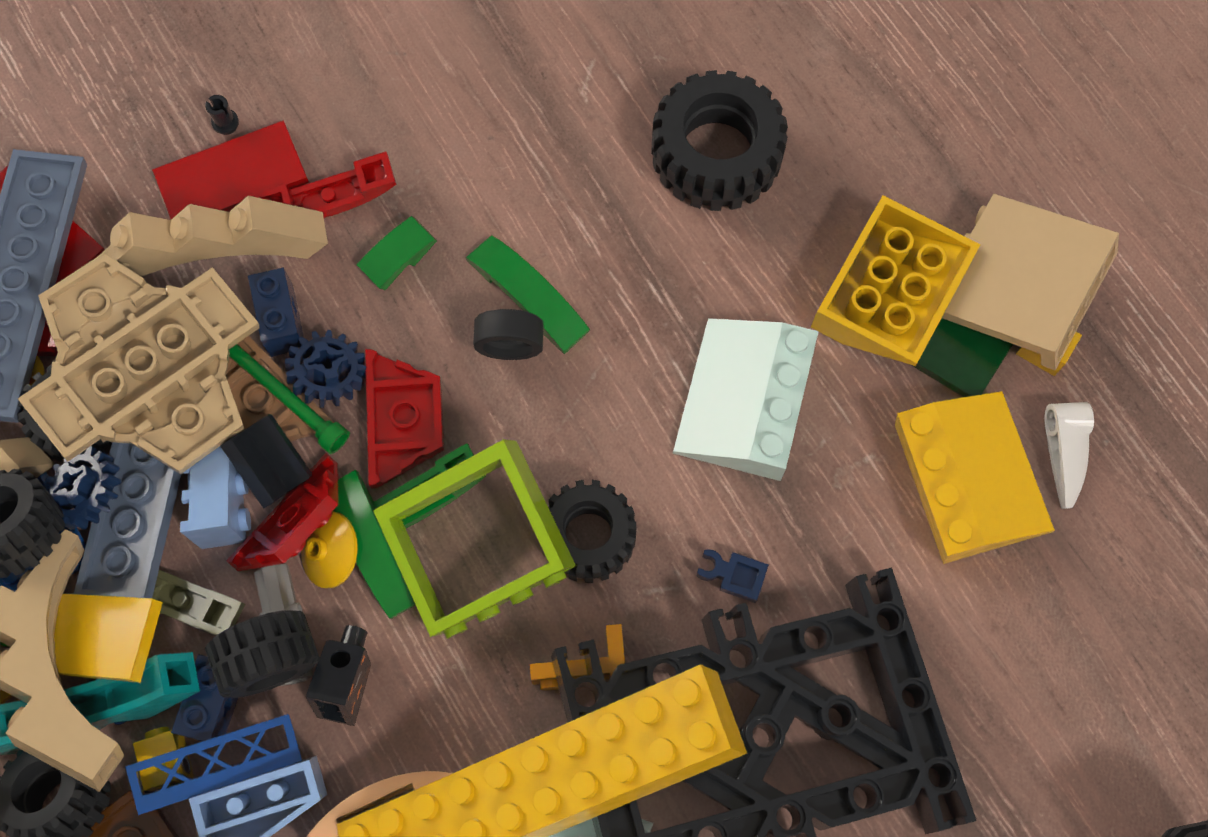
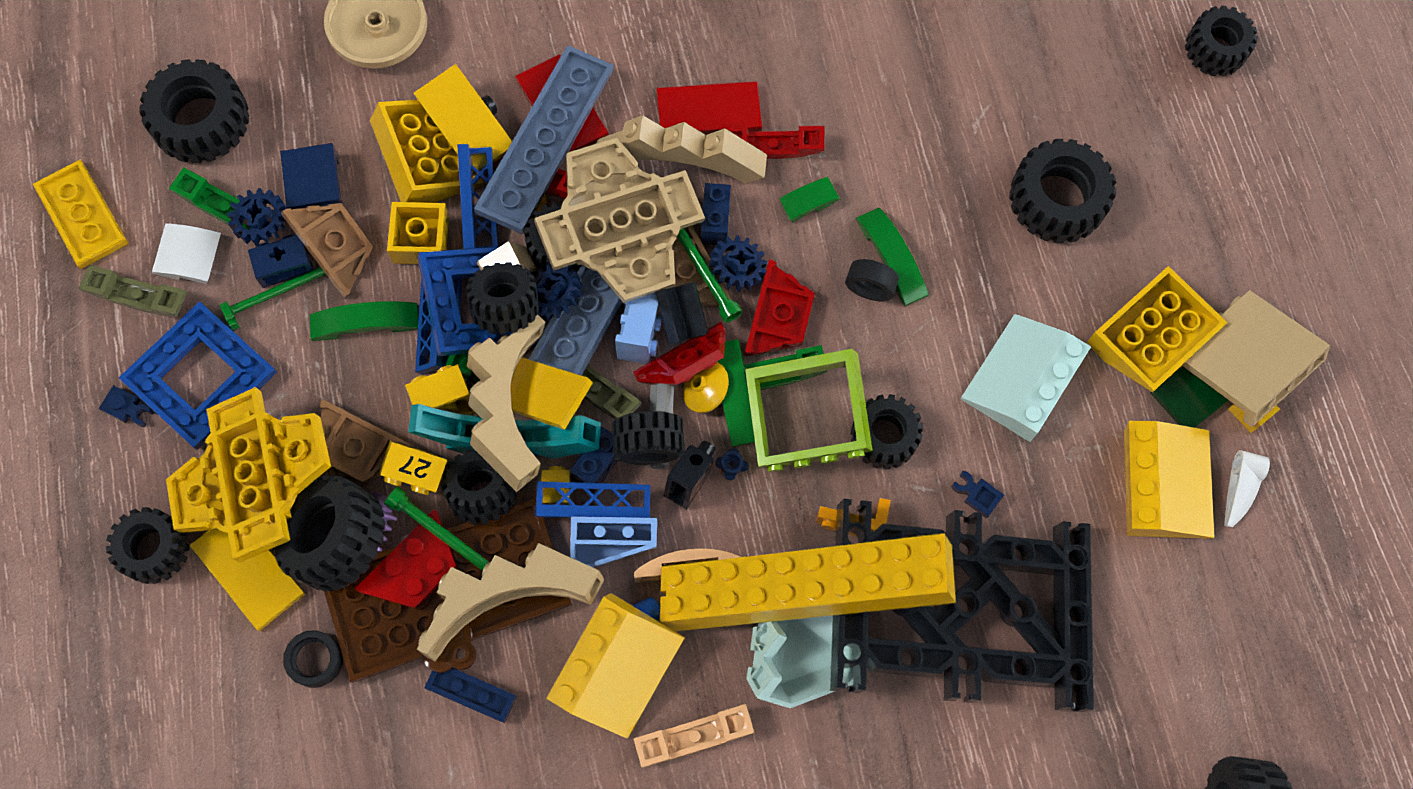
camera: 15 degrees right, 0 degrees up
(222, 117) = (715, 66): black pin -> none
(394, 632) = (739, 464): none -> dark blue plate

